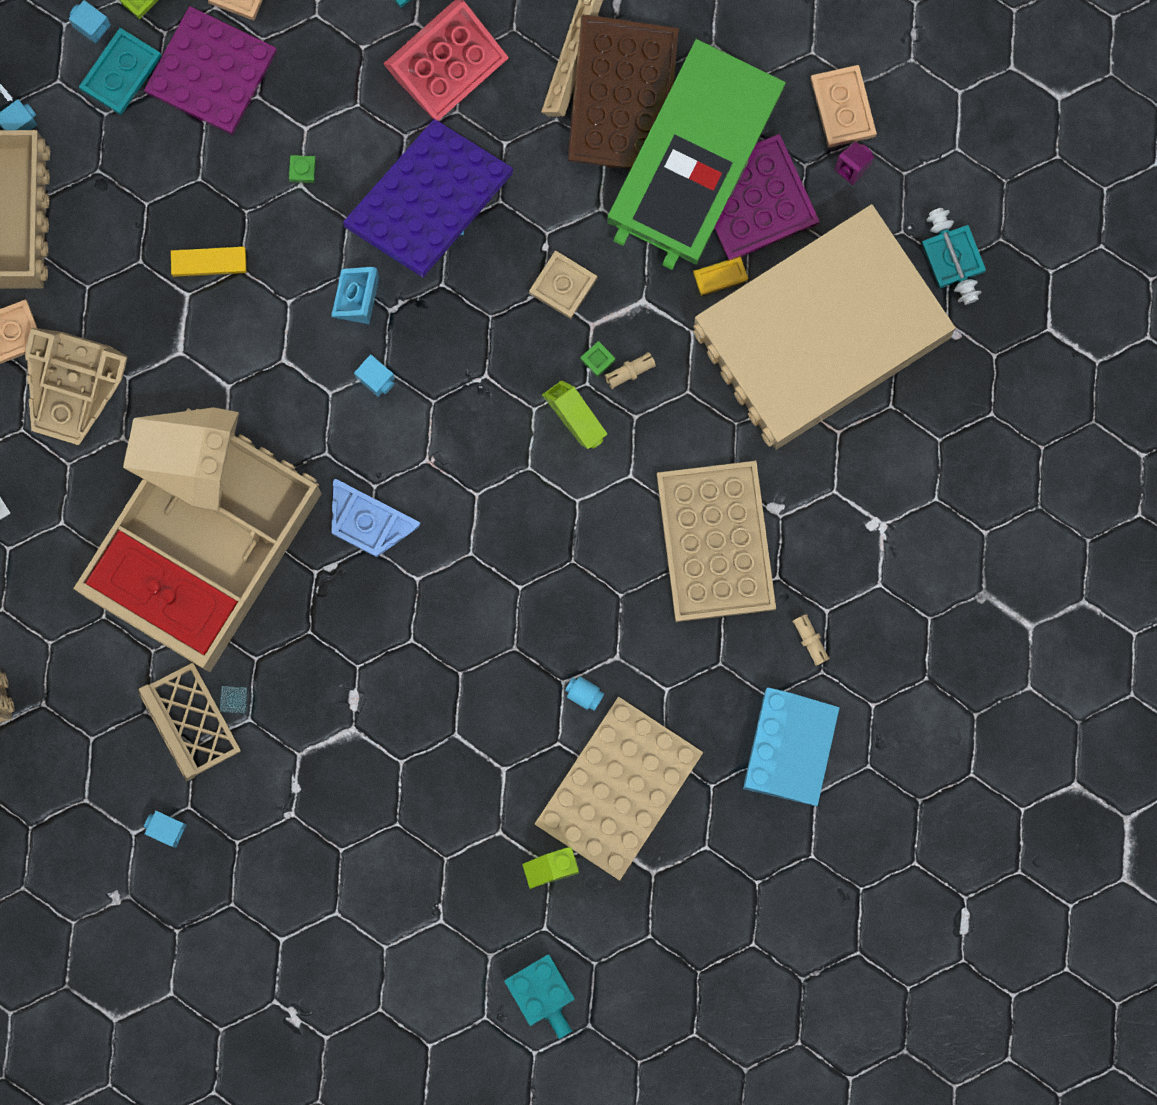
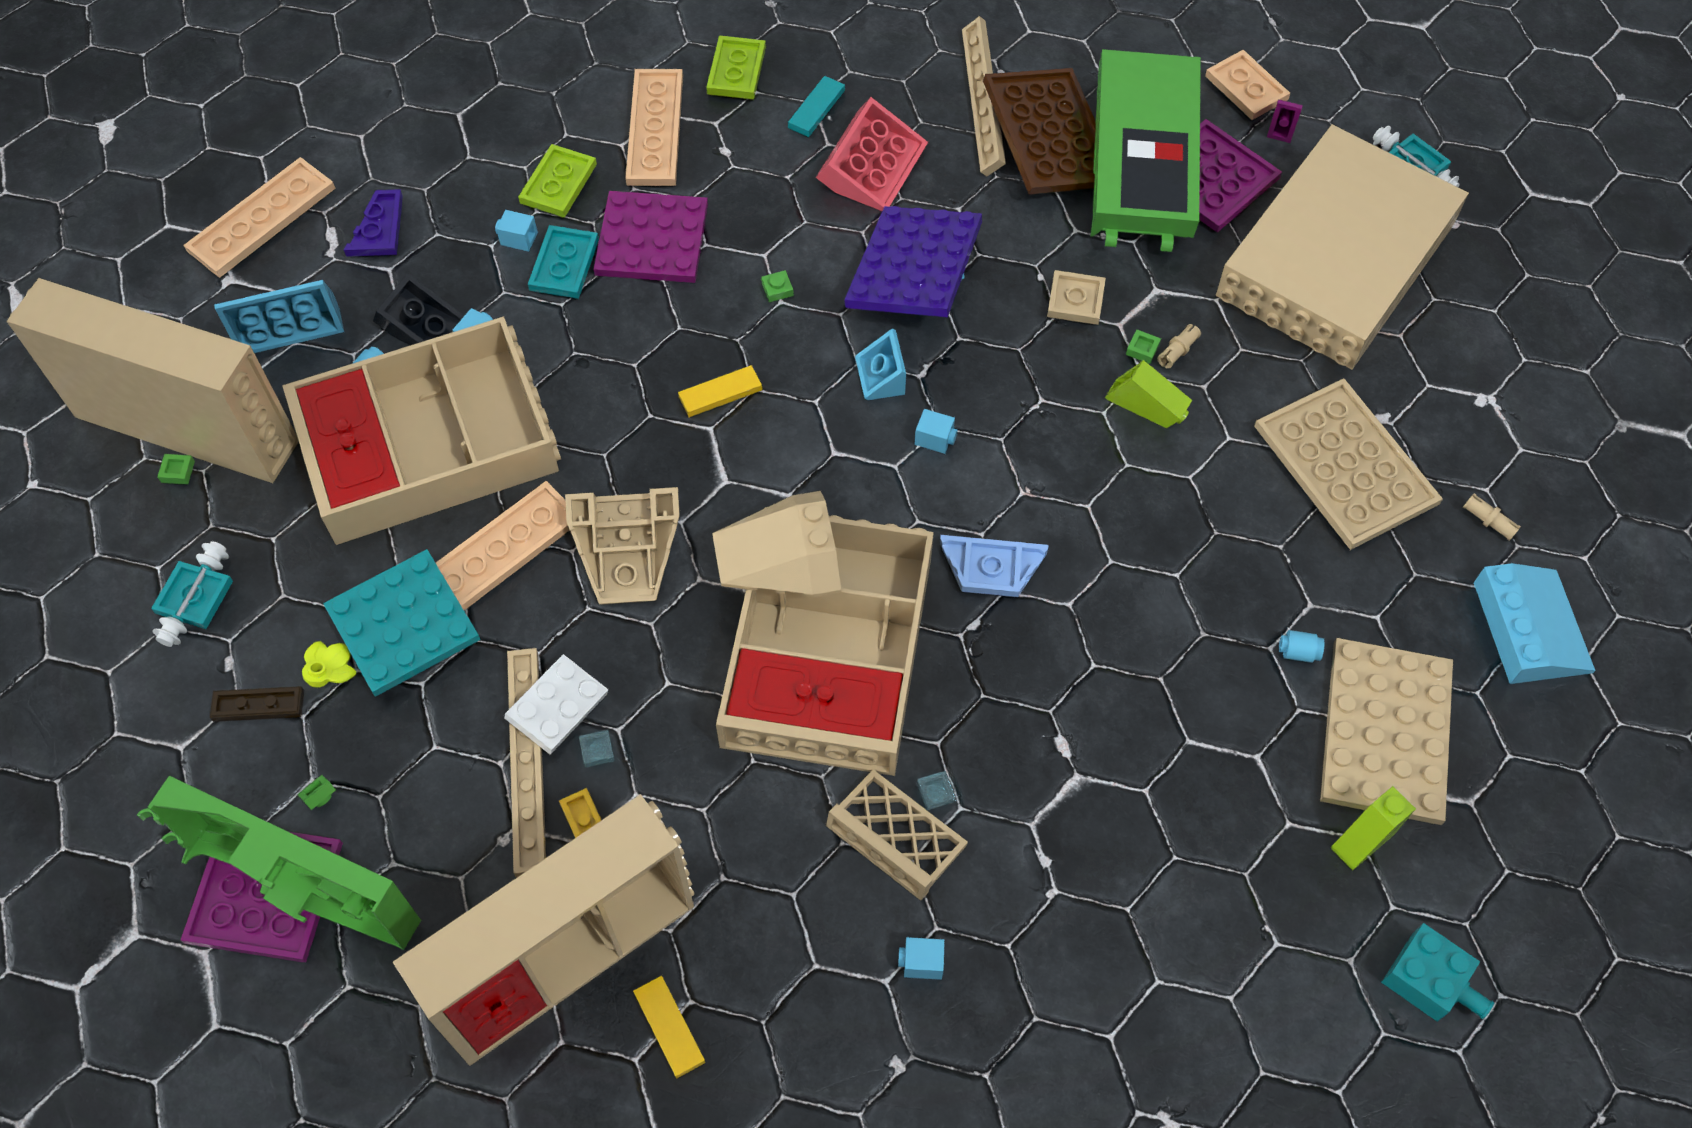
camera: 20 degrees left, 20 degrees down
(720, 276) = (1216, 246): yellow tile -> none

